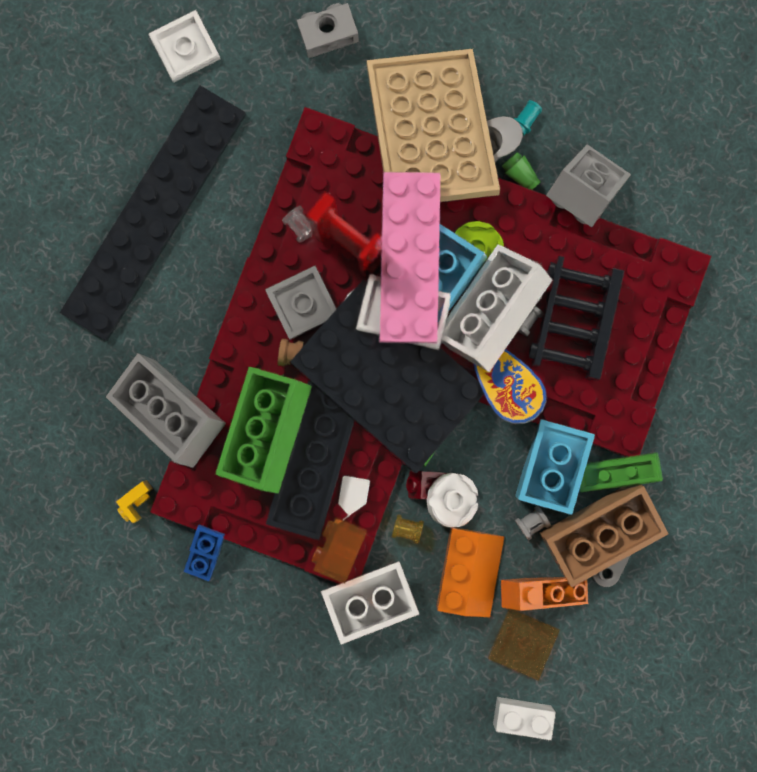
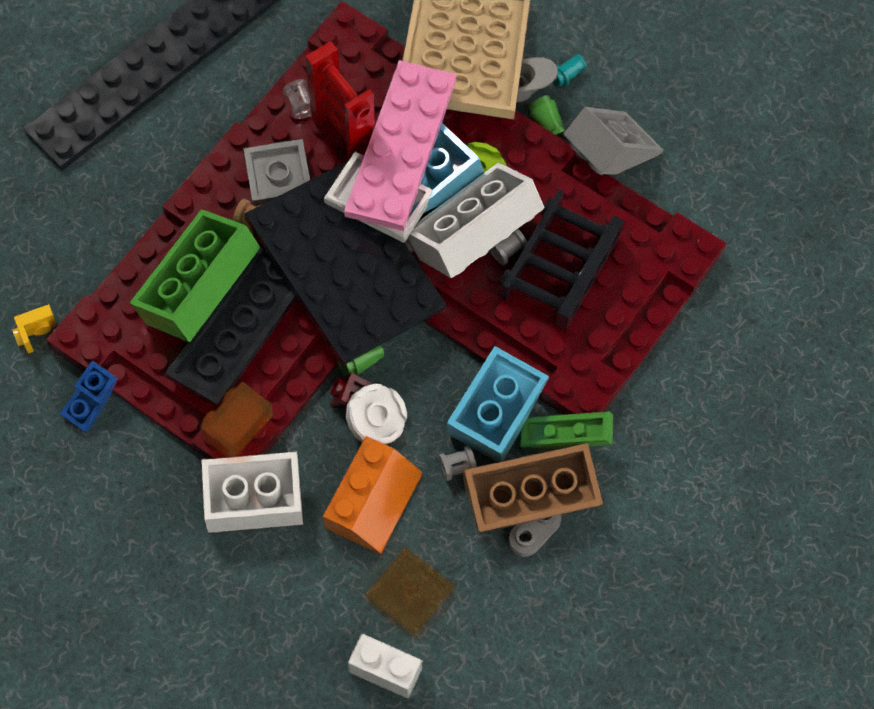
camera: 10 degrees right, 20 degrees down
(165, 410) = (100, 237): light grey brick -> none
(353, 494) = (270, 374): white sticker -> none
(407, 529) = (317, 433): clear yellow bush -> none
(512, 389) = (471, 304): shield -> none
(542, 593) = (448, 538): orange slope -> none

